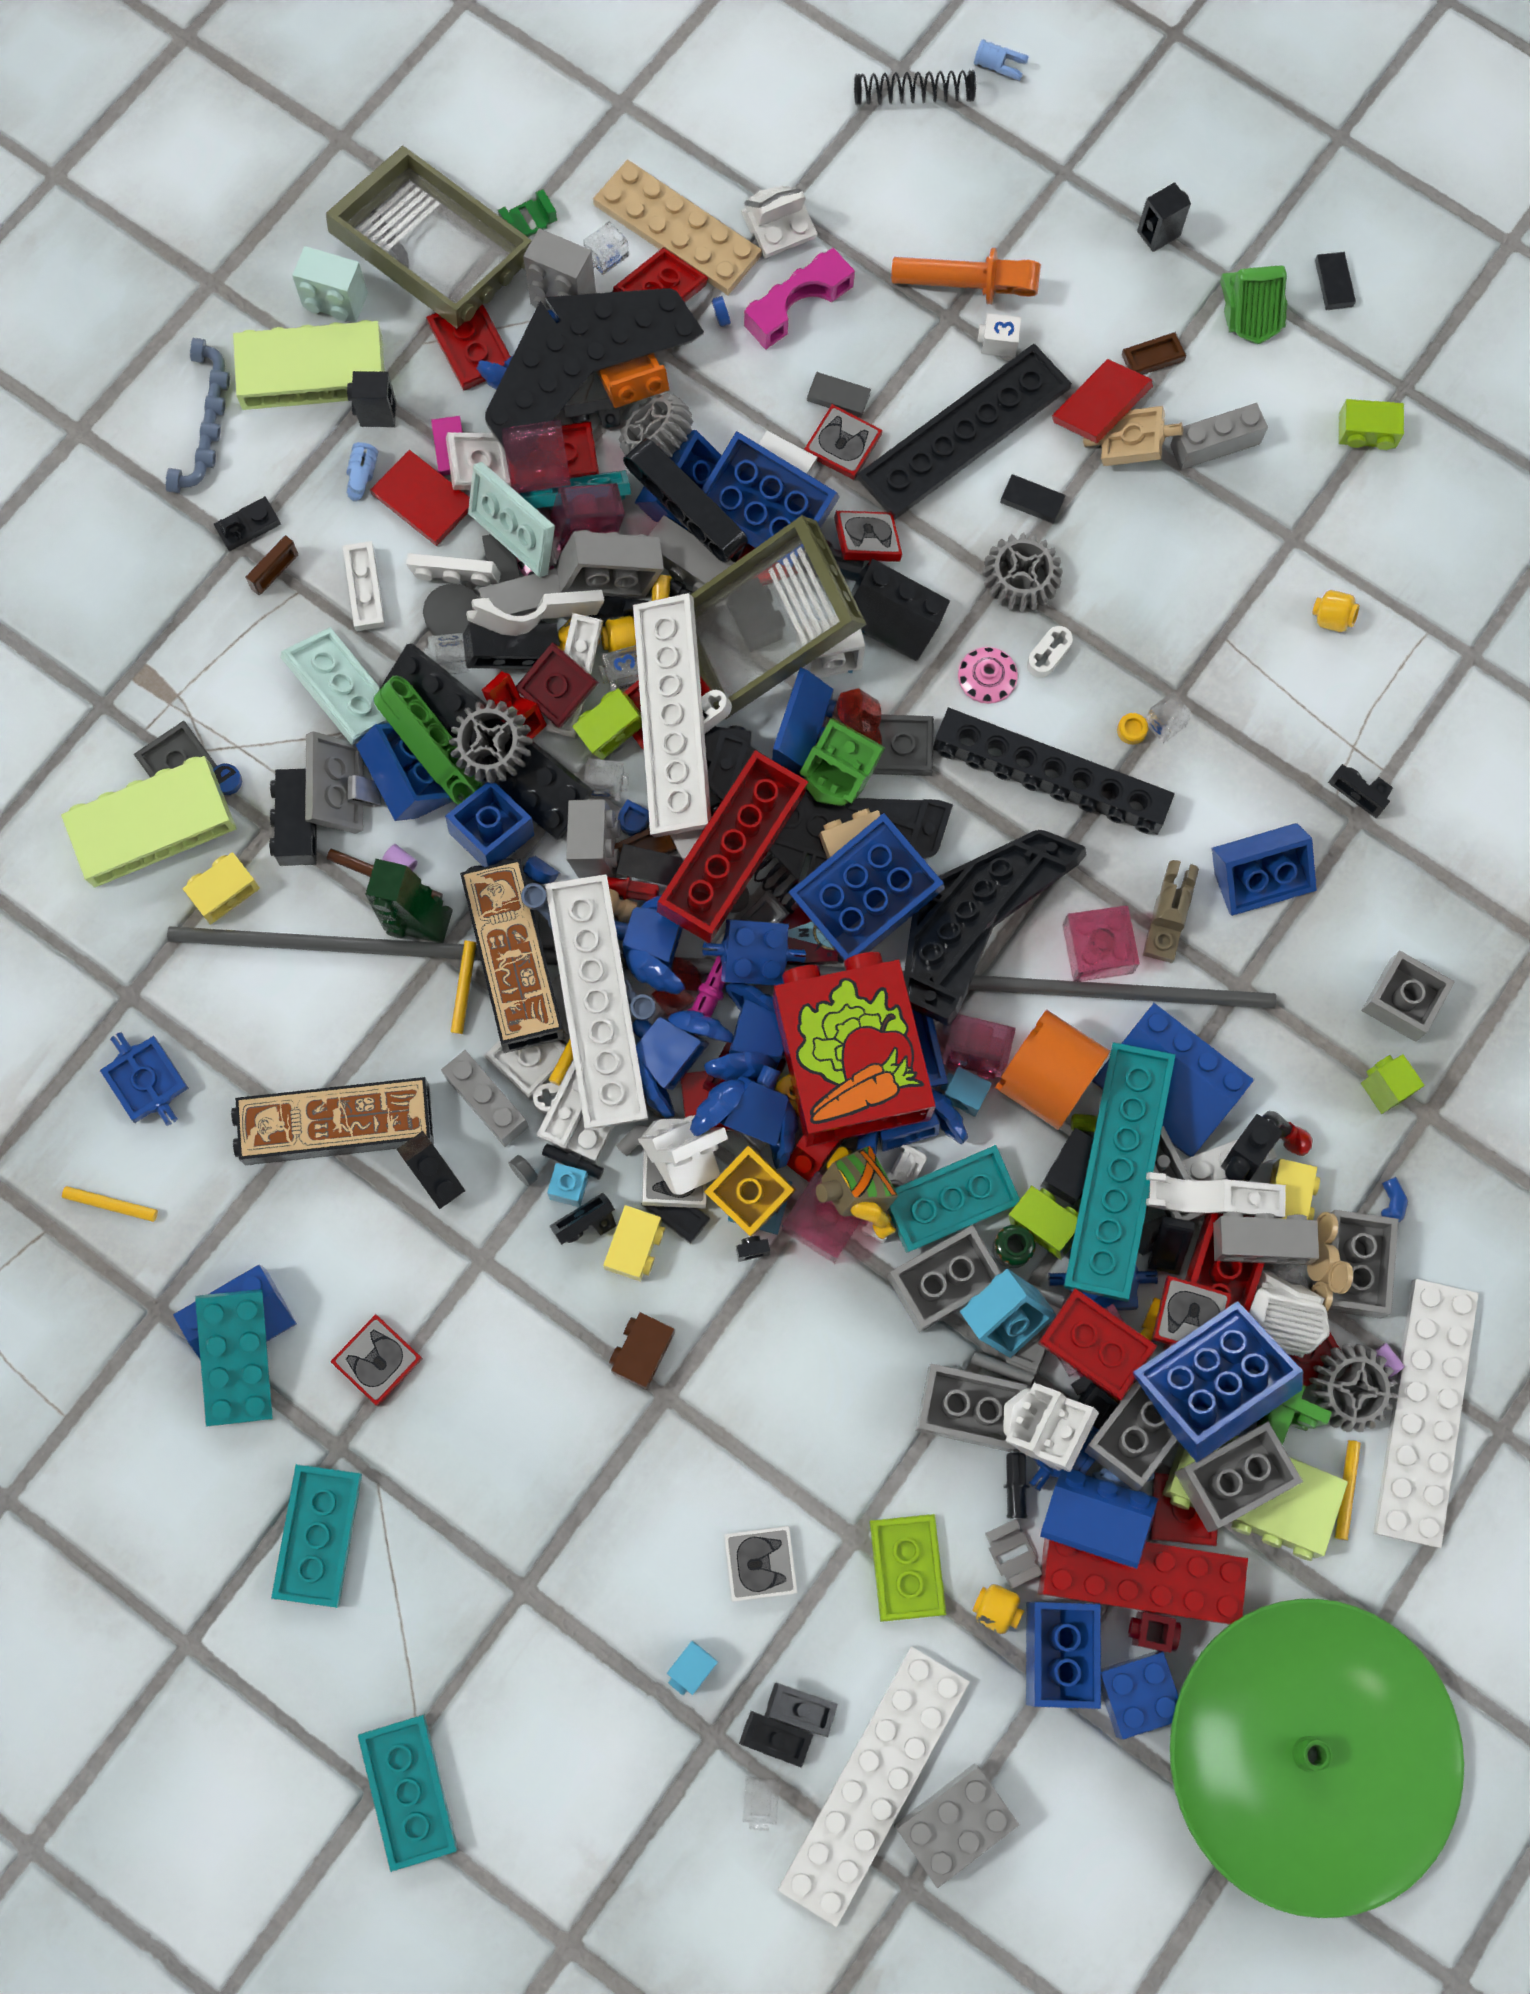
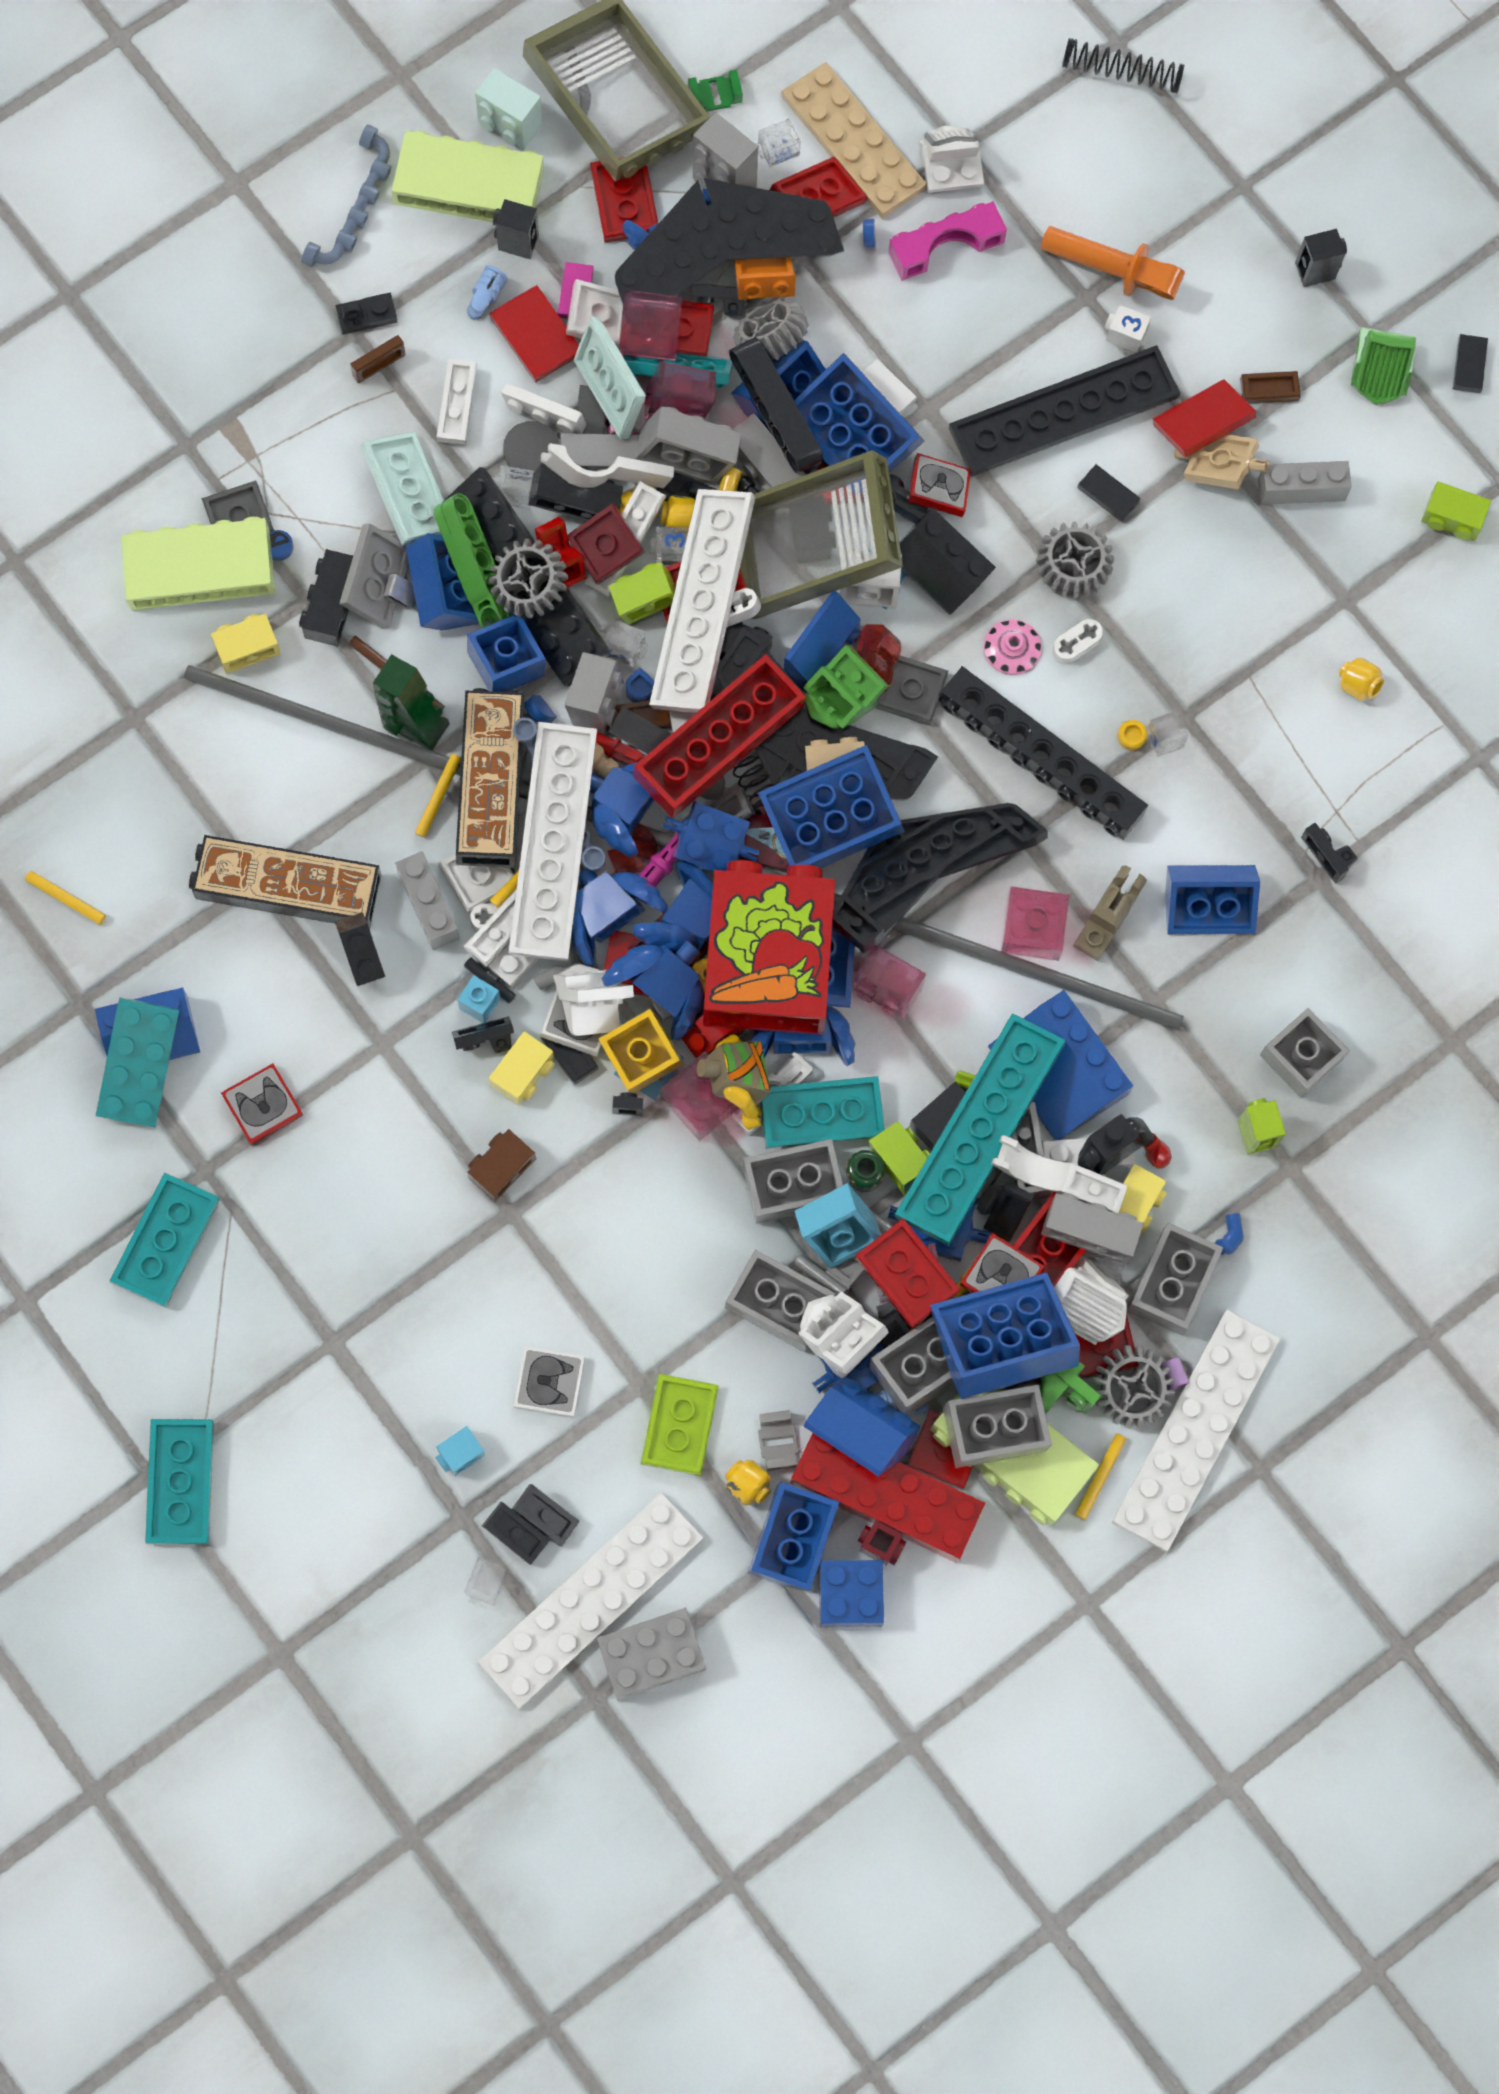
camera: 15 degrees right, 0 degrees up
(144, 1079) = (127, 795): blue plate -> none
(398, 855) = (415, 659): lavender hinge -> none
(523, 1170) = (442, 975): dark grey tile -> none
(843, 441) = (946, 389): tile -> none
(846, 395) = (956, 343): dark grey tile -> none
(966, 1090) = (867, 1020): medium azure brick -> none
(994, 57) = (1211, 57): light blue hinge -> none
(1016, 1485) = (800, 1382): black axle -> none
(1052, 1069) = (949, 1022): orange brick -> none
(1328, 1270) = (1142, 1269): tan piece -> none
(1385, 1772) = (1055, 1680): bright green dish -> none

